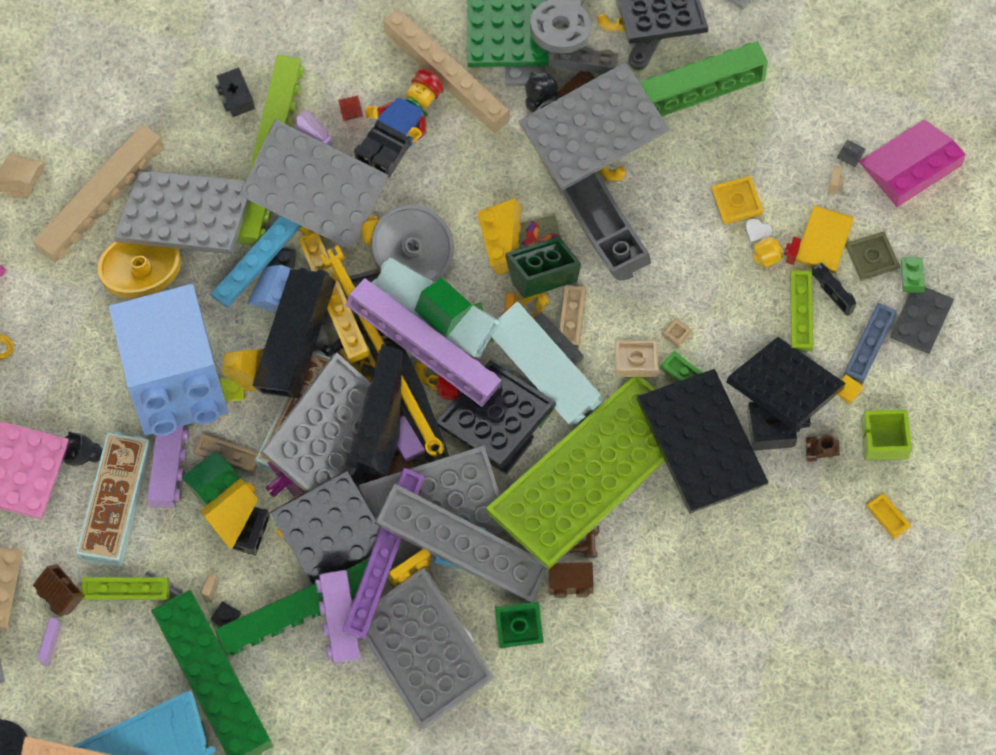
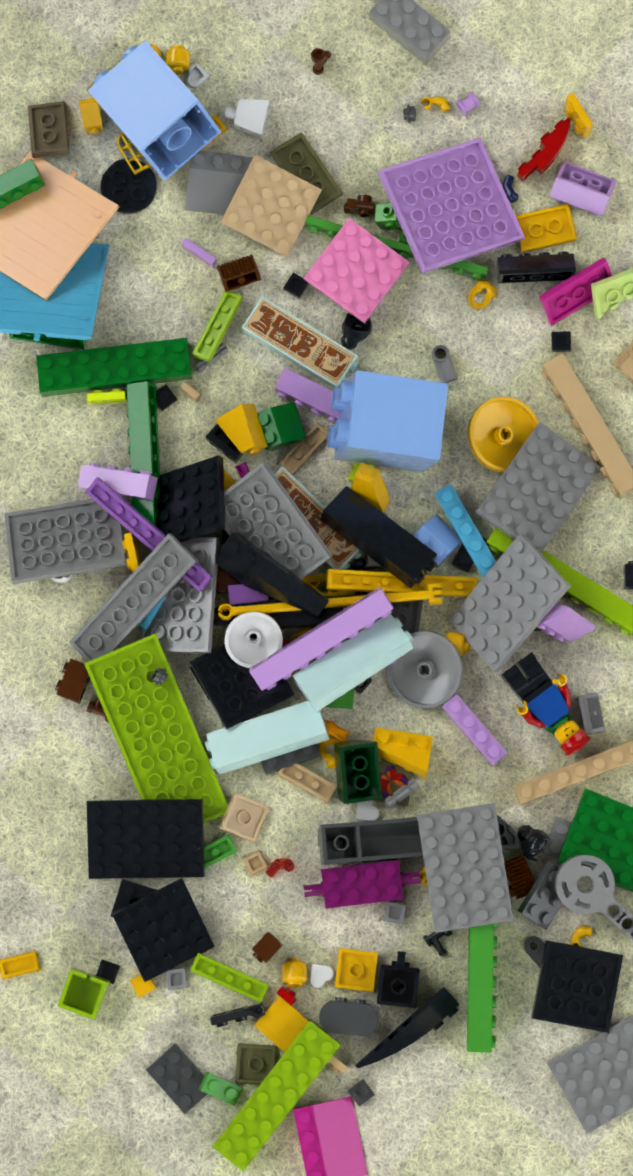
camera: 120 degrees right, 15 degrees up
(20, 252) = (561, 341): none -> black plate
(51, 529) = (296, 285): none -> black plate
(86, 350) = (444, 366): none -> light grey piece
(243, 665) = (101, 397): none -> neon yellow plate
(350, 108) = (587, 670): clear red plate -> none
(392, 90) = (591, 713): none -> light grey hinge
(442, 306) = (343, 666): green slope -> none
(445, 402) = (250, 651): none -> white dish
(455, 180) = (474, 730): none -> lavender brick
(519, 624) = (54, 624): green slope -> none
(530, 484) = (159, 676): none -> dark grey plate
(545, 222) = (402, 793): none -> light grey axle
(579, 249) = (366, 811): none -> white tile
(653, 223) = (362, 884): none -> magenta brick
(665, 187) = (395, 912): none -> light grey plate
(667, 309) = (280, 864): none -> clear red arm
(674, 145) = (433, 940): none -> black piece
(732, 155) = (398, 971): none -> black hinge
(756, 281) = (266, 948): none -> reddish brown brick
(769, 129) = (422, 1021): none -> black wedge
(786, 188) = (348, 1017): none -> dark grey brick
(817, 448) = (102, 933): reddish brown plate -> none
(827, 358) = (176, 979): none -> light grey plate
(851, 427) = (108, 971): none -> black tile
(870, 342) = (176, 1023): sand blue tile -> none
(893, 220) = (276, 1095): none -> lime brick

